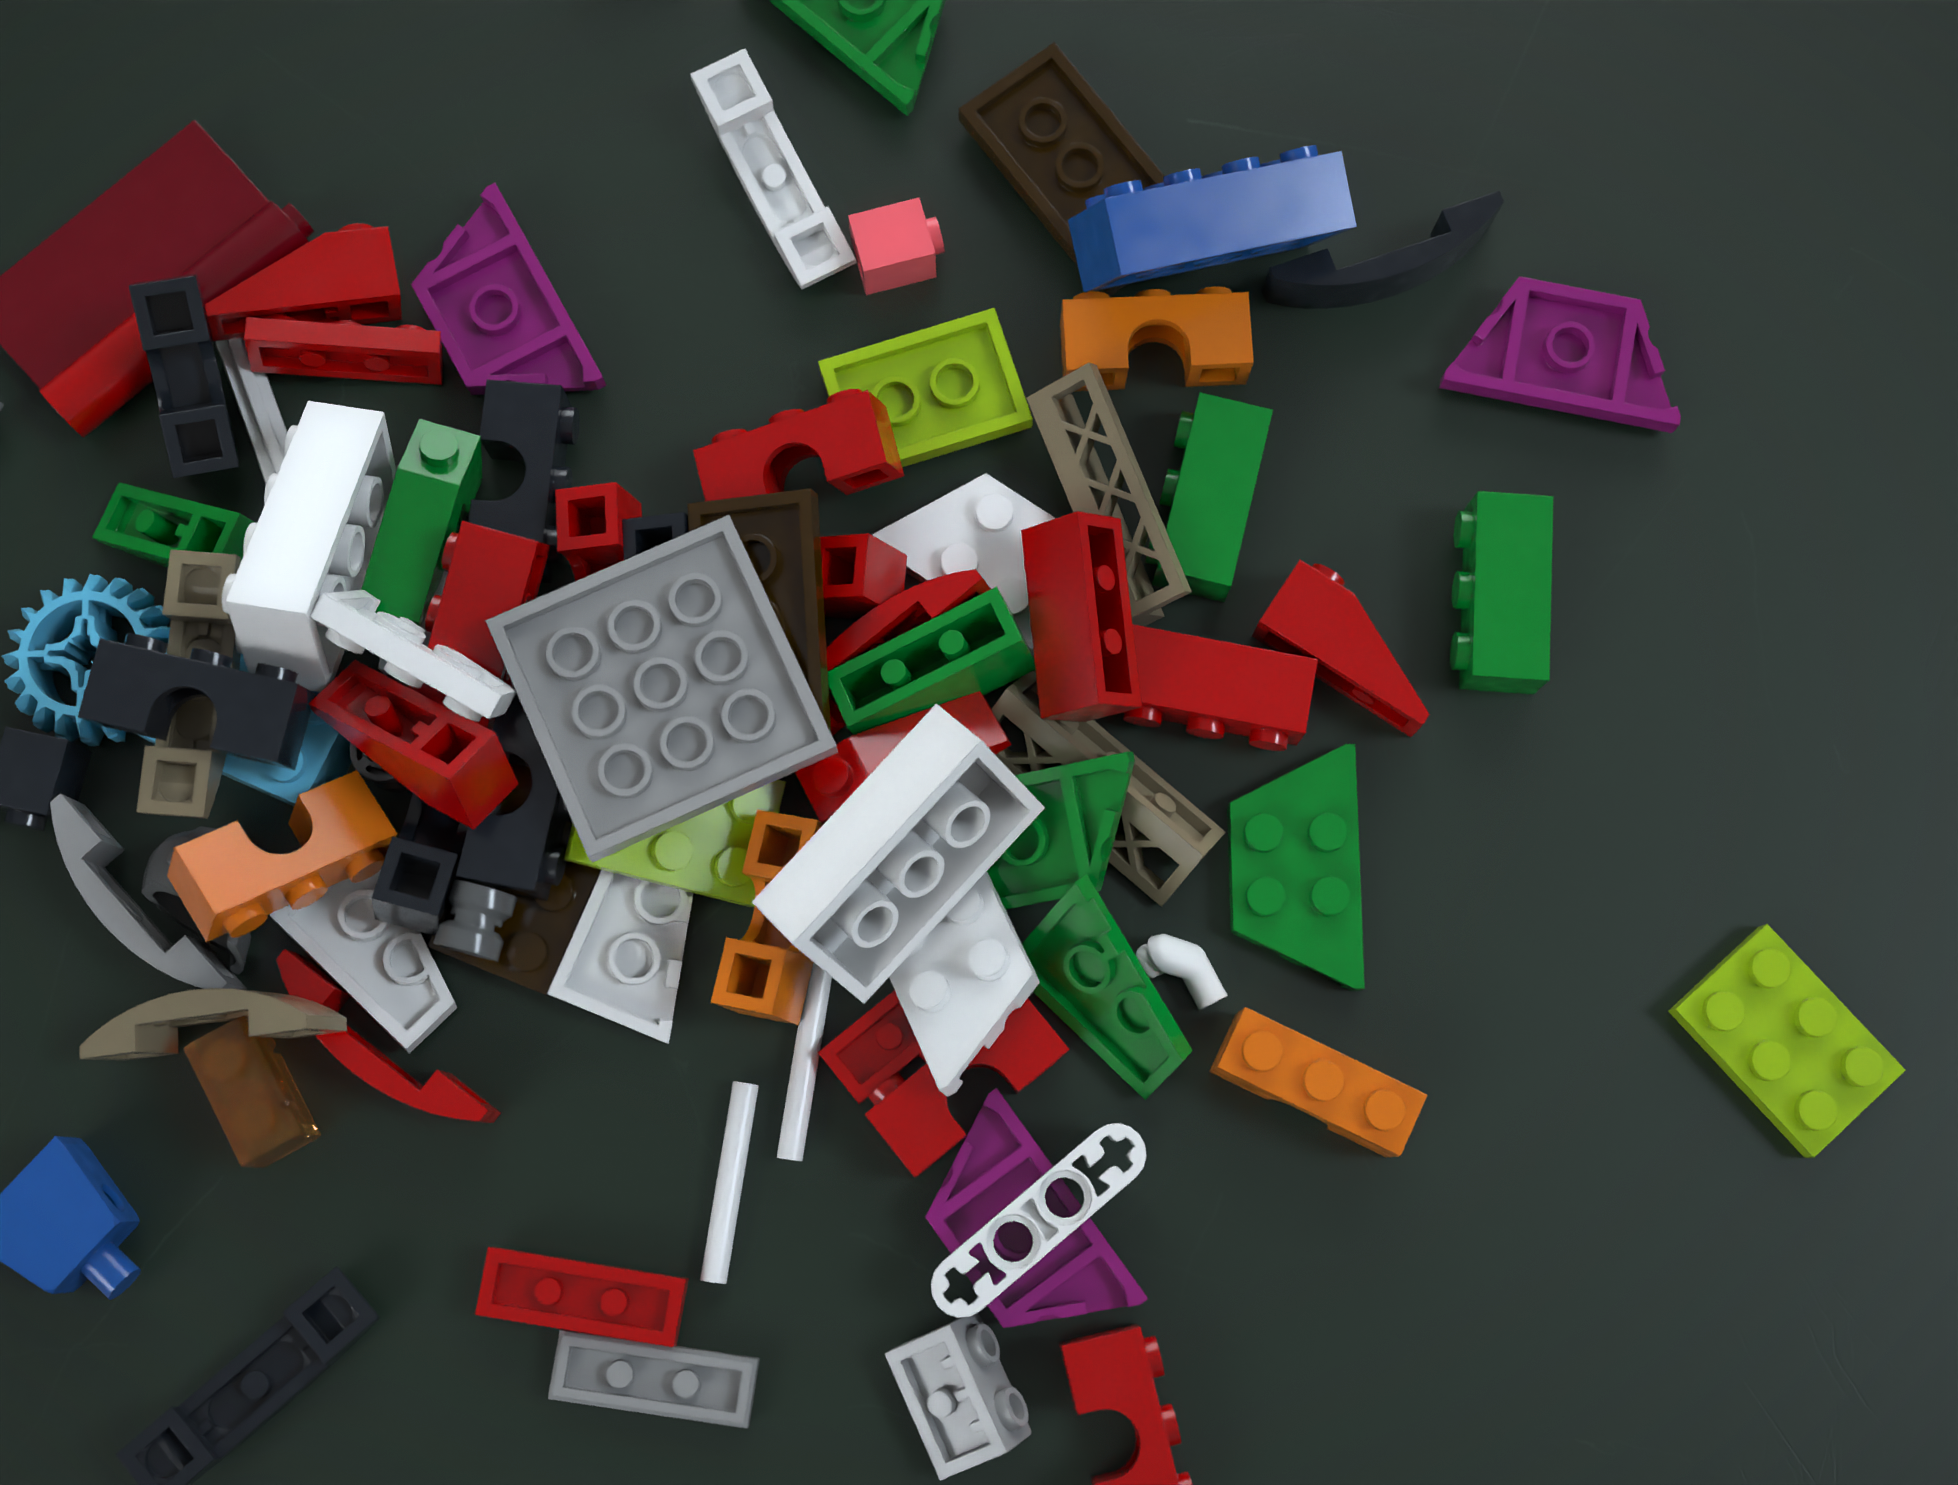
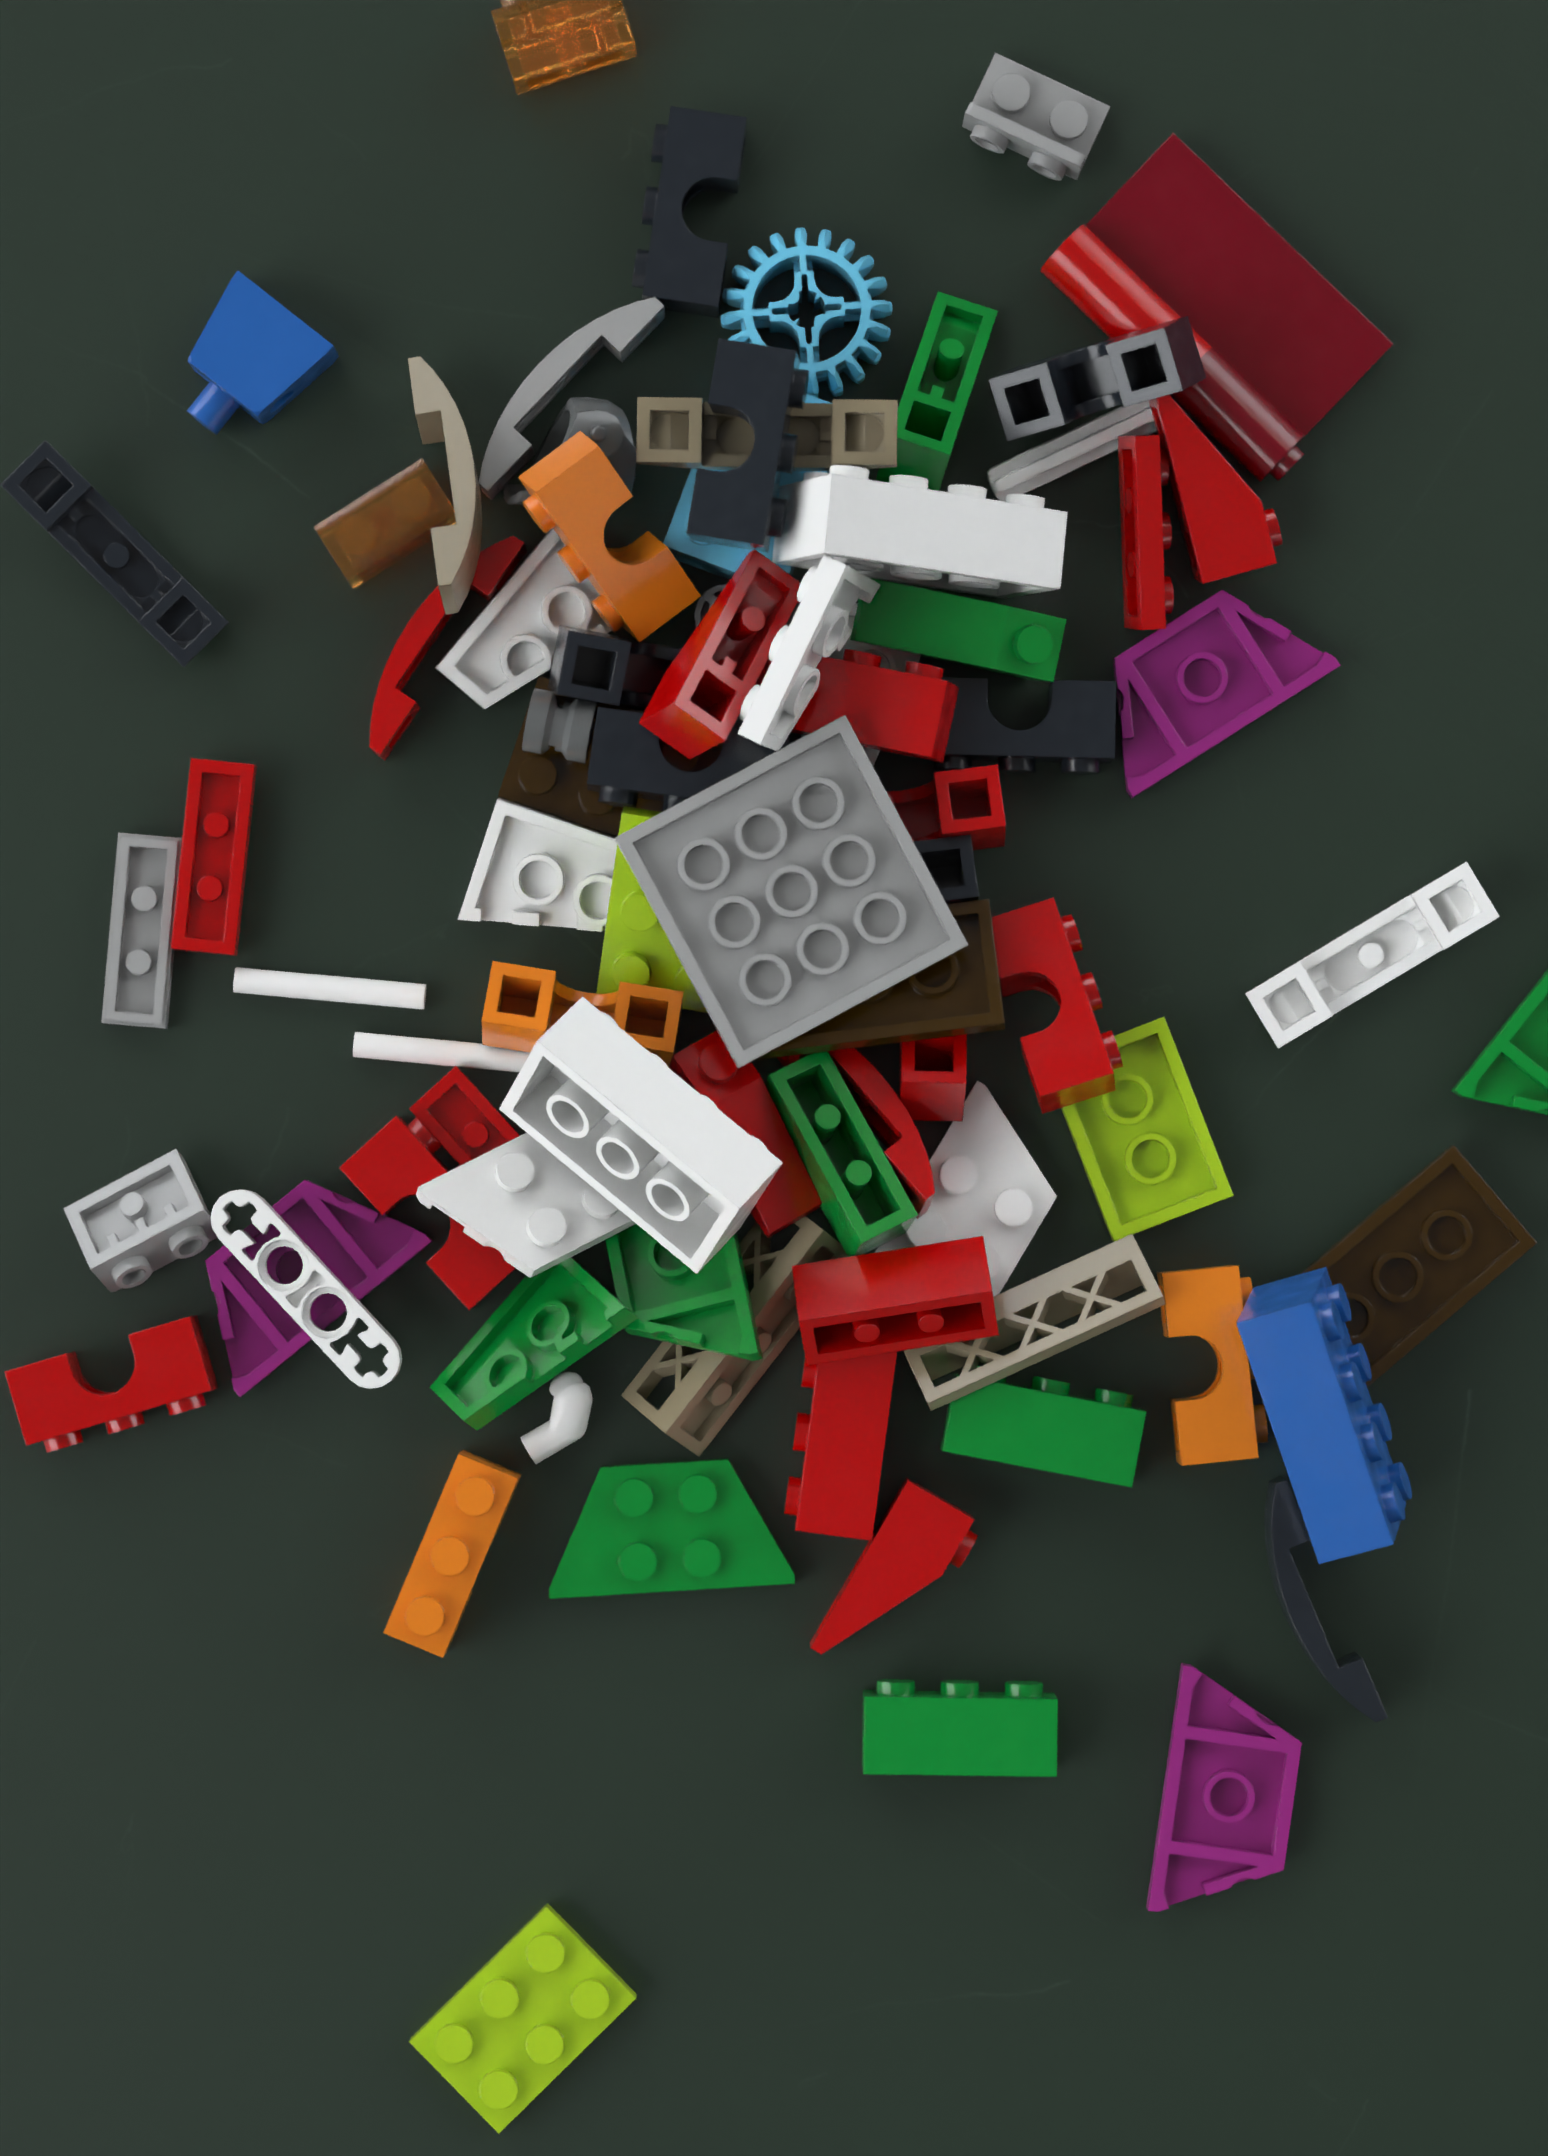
camera: 85 degrees right, 10 degrees up
(895, 245) = (1297, 1088): coral brick -> none

